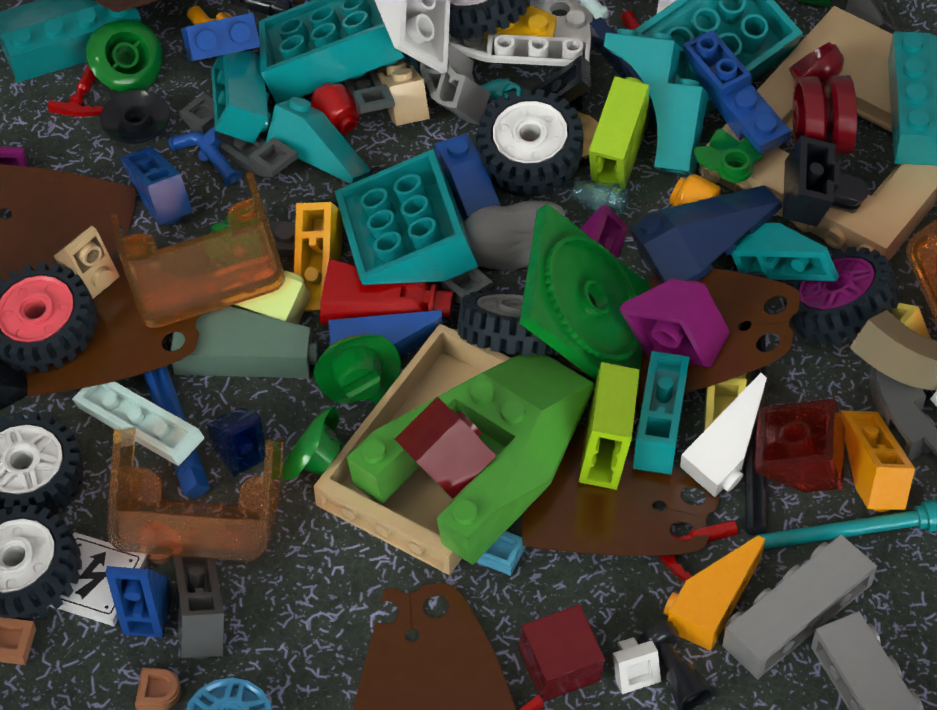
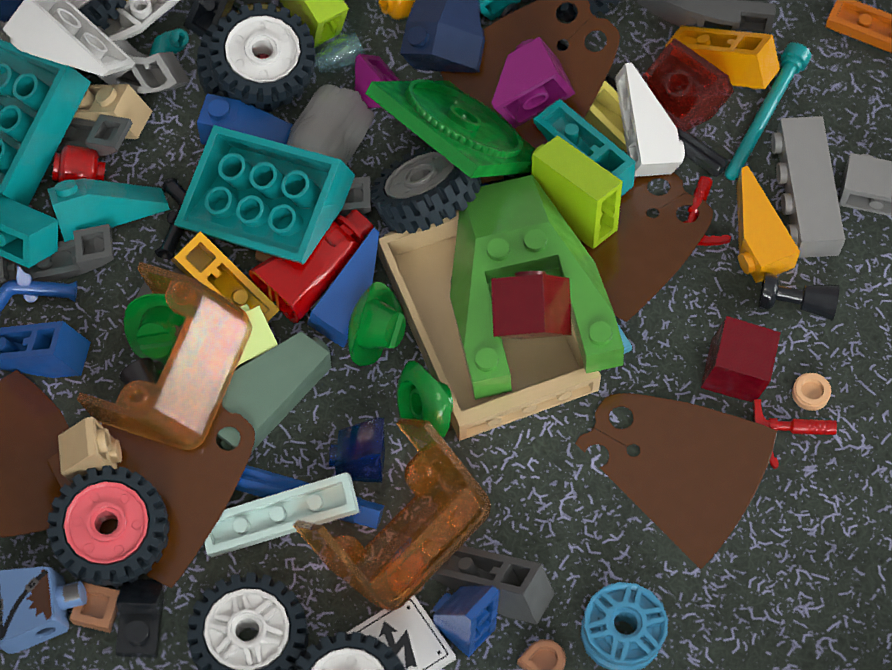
camera: 55 degrees left, 10 degrees up
(636, 665) = (778, 318): white tile -> none

